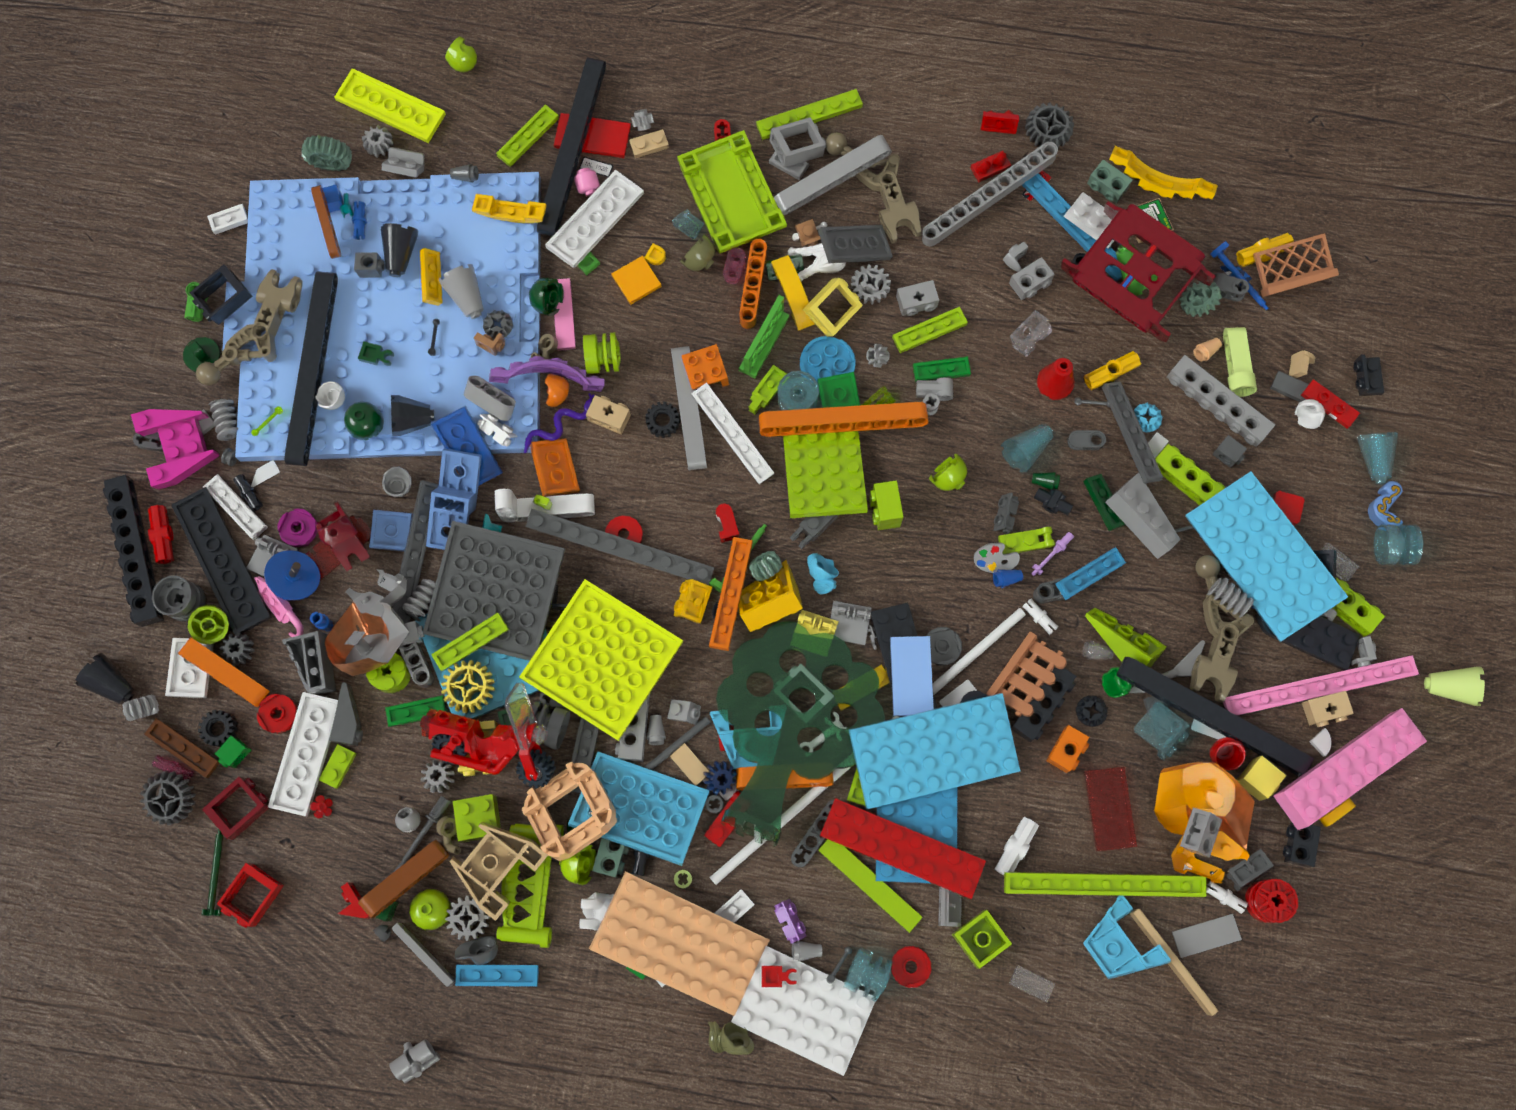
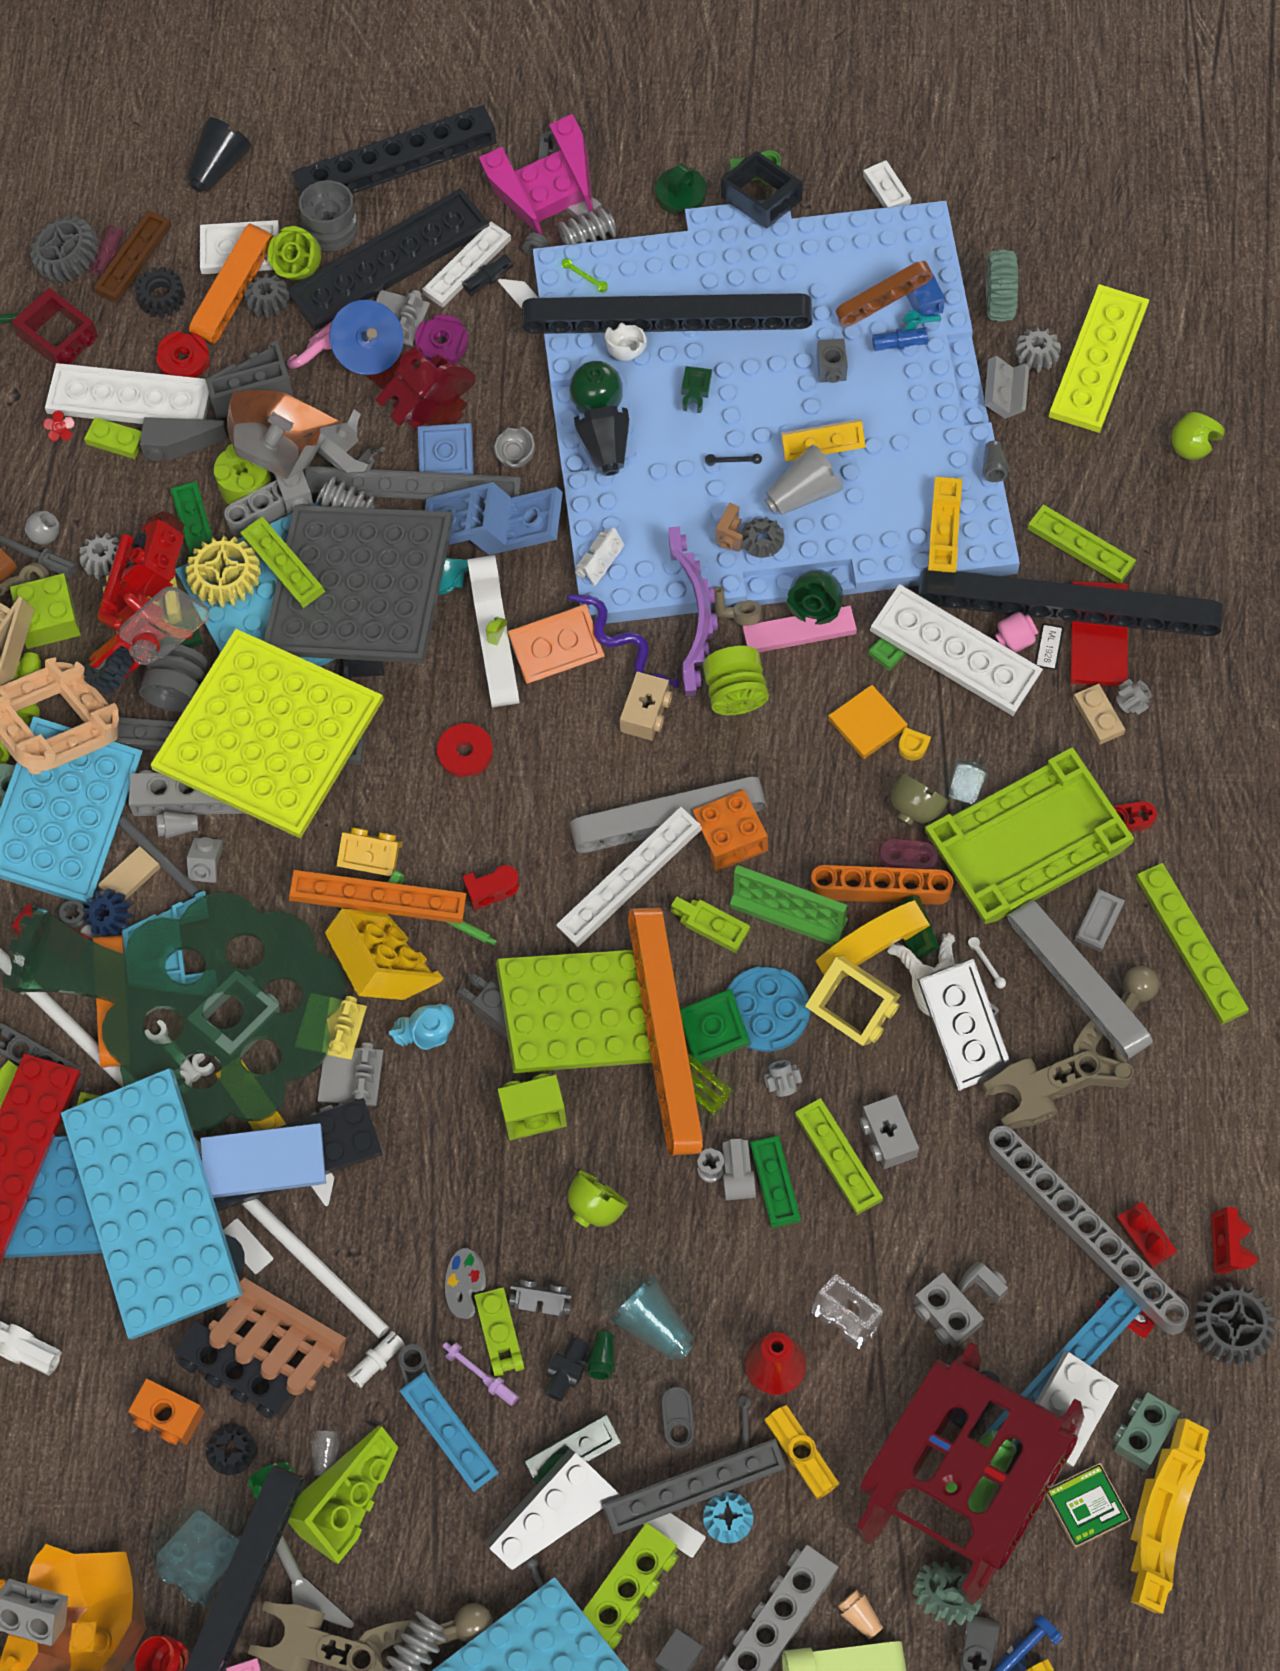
camera: 85 degrees right, 10 degrees down
(140, 707) = (181, 199): light grey gear -> none
(160, 534) = (419, 184): red piece -> none
(232, 752) = (128, 313): green brick -> none
(274, 304) = (719, 249): dark tan piece -> none
(321, 621) = (306, 383): blue pin -> none
(397, 247) = (859, 390): black cone -> none
(461, 433) = (582, 515): blue tile -> none
(489, 398) = (642, 538): light grey beam -> none
(557, 389) = (674, 629): orange hair -> none
(619, 546) = (441, 745): dark grey plate -> none
(662, 409) = (642, 766): black tyre -> none
(765, 566) = (426, 943): sand green gear -> none
(797, 391) = (702, 963): clear light blue wheel -> none
(800, 155) = (1111, 935): light grey window -> none
(808, 233) = (983, 952): medium nougat bracket -> none
(872, 276) = (899, 1047): light grey gear -> none
(944, 646) = (322, 1215): dark grey tile -> none
(1004, 578) = (436, 1304): blue cone -> none
(1110, 809) = (77, 1487): clear red tile -> none

